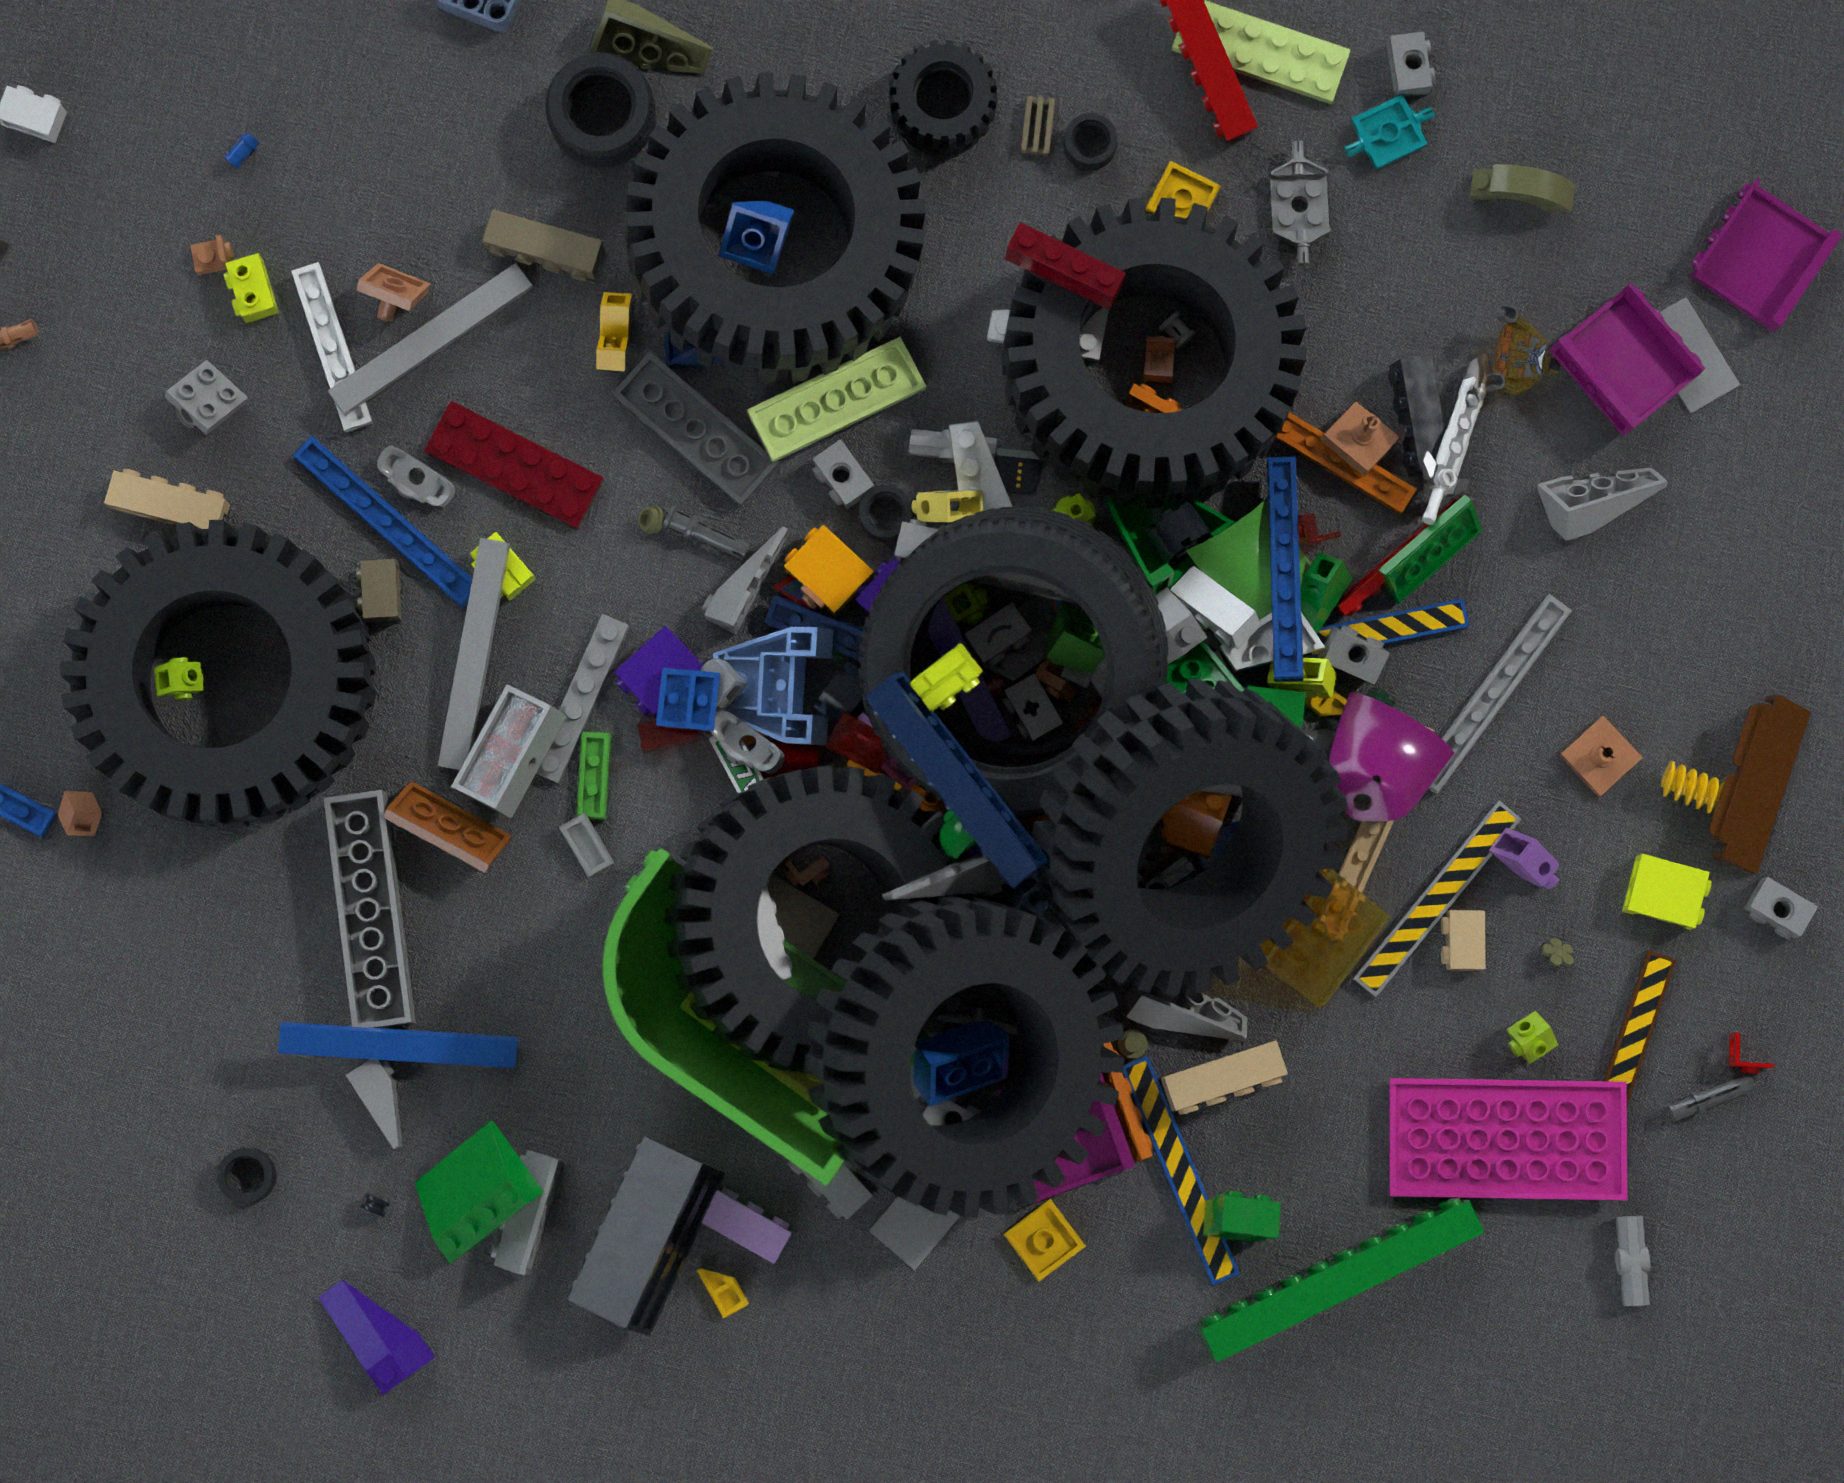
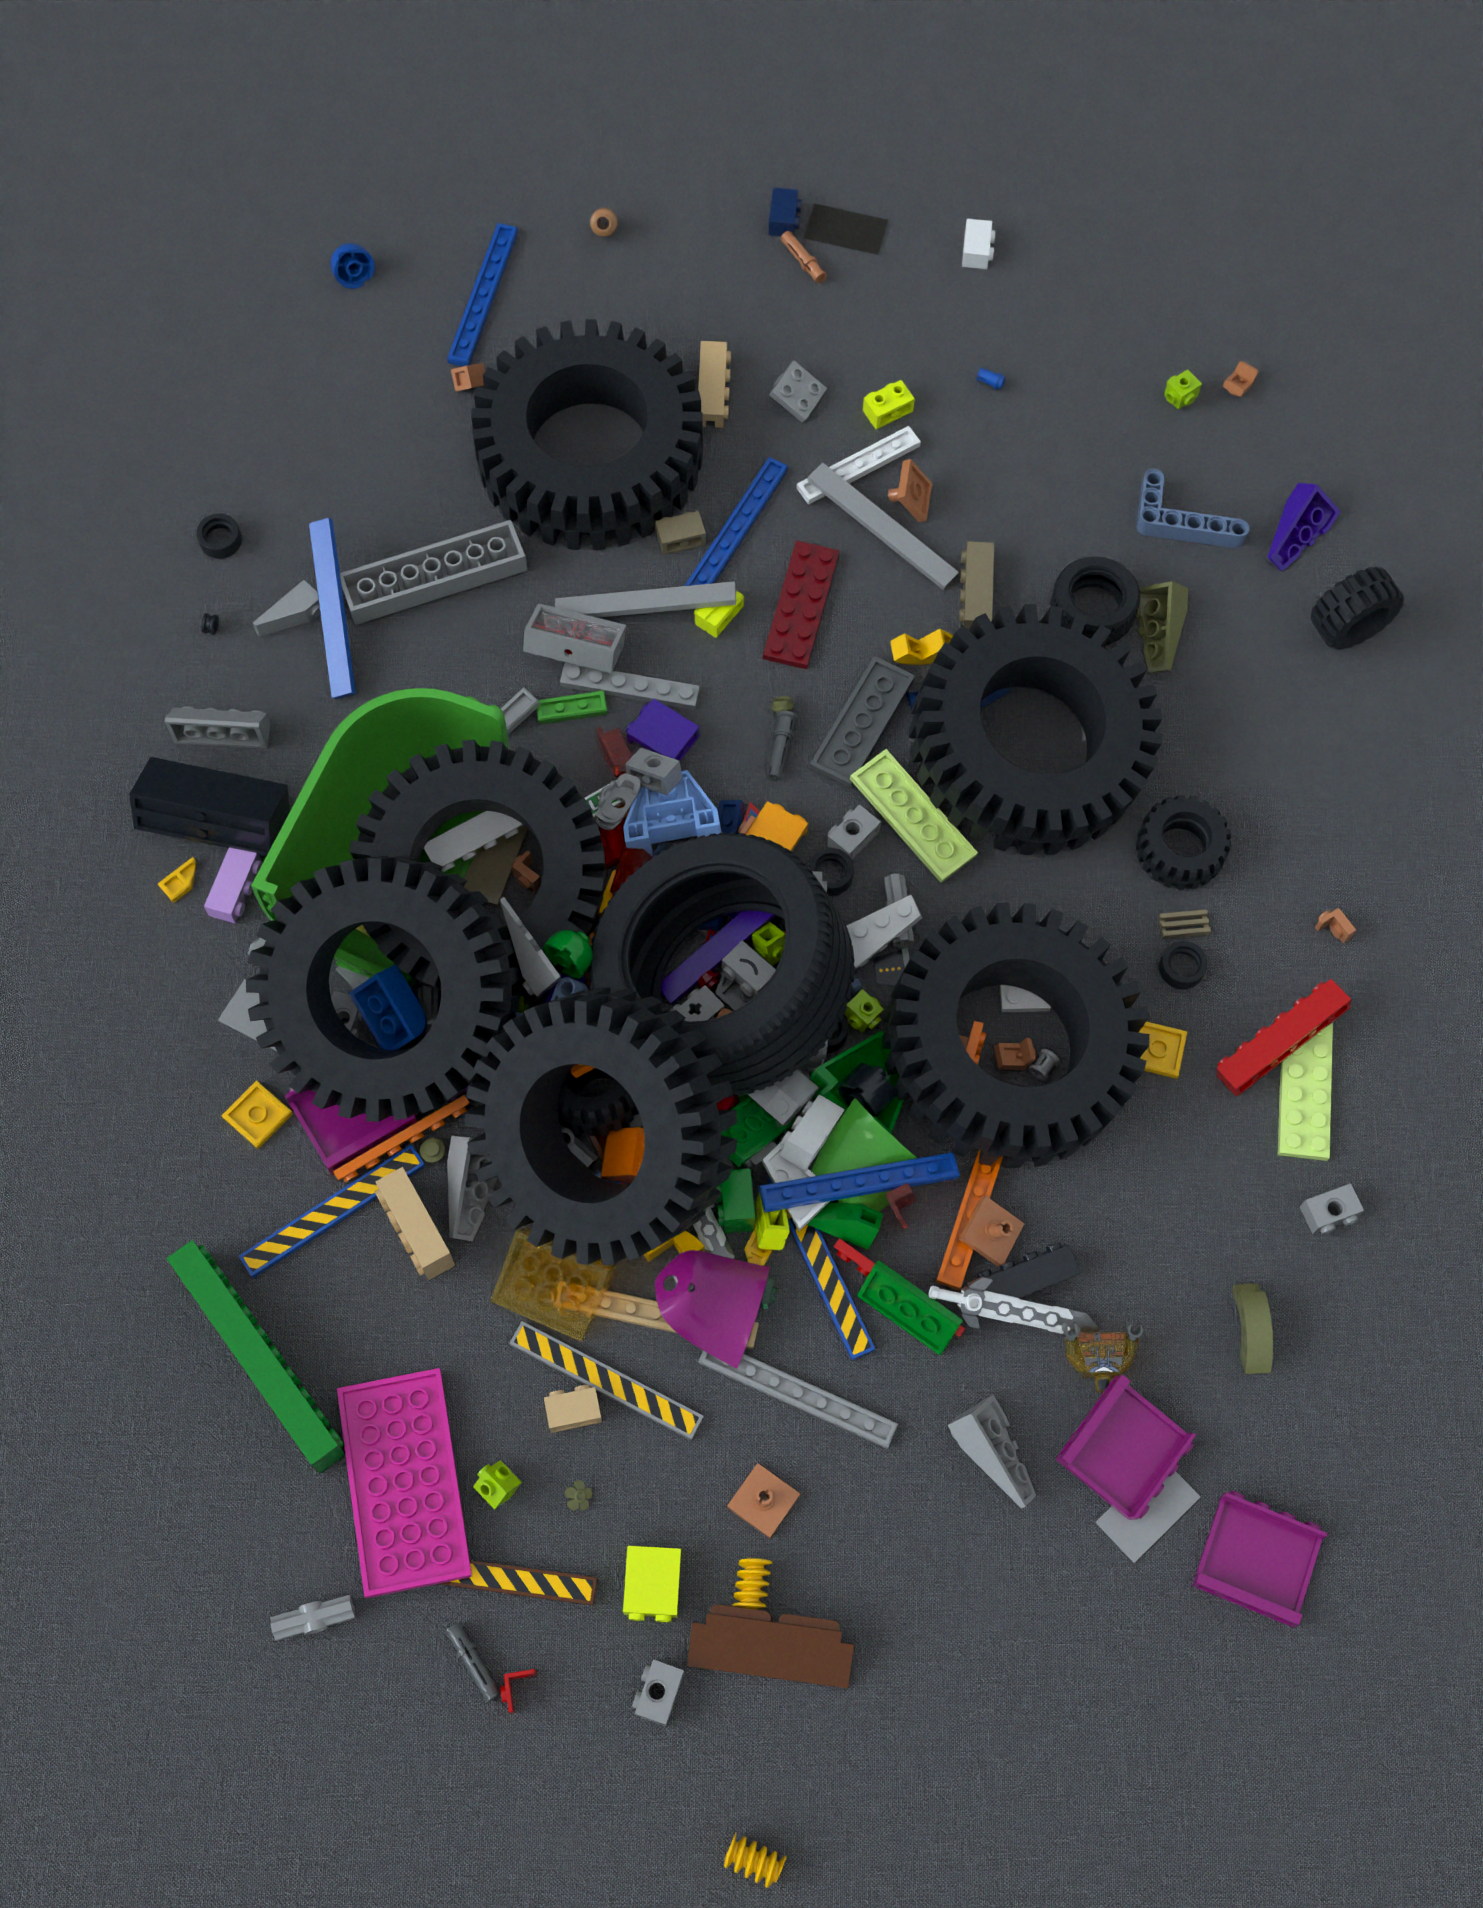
camera: 80 degrees right, 15 degrees down
(178, 679) = (571, 397): lime brick -> none
(211, 255) = (907, 374): nougat bracket -> none
(378, 1339) = (104, 648): dark purple wedge -> none
(397, 466) = (778, 526): light grey piece -> none
(447, 826) = (507, 610): dark orange plate -> none
(475, 1192) = (224, 682): green slope -> none
(688, 699) = (642, 749): blue slope -> none
(738, 593) = (738, 777): light grey wedge -> none
(756, 234) = (1024, 710): blue slope -> none
(935, 505) = (846, 903): light yellow torso -> none
(946, 678) = (688, 896): neon yellow brick -> none
(957, 780) = (605, 921): dark blue brick -> none
(1064, 265) = (1062, 934): dark red brick -> none
(1242, 1218) = (295, 1260): green brick -> none
(1306, 182) = (1197, 1130): light grey plate -> none
(1366, 665) = (796, 1247): light grey brick -> none
(1389, 132) = (1267, 1204): teal plate -> none
(1533, 863) = (654, 1447): medium lavender torso -> none

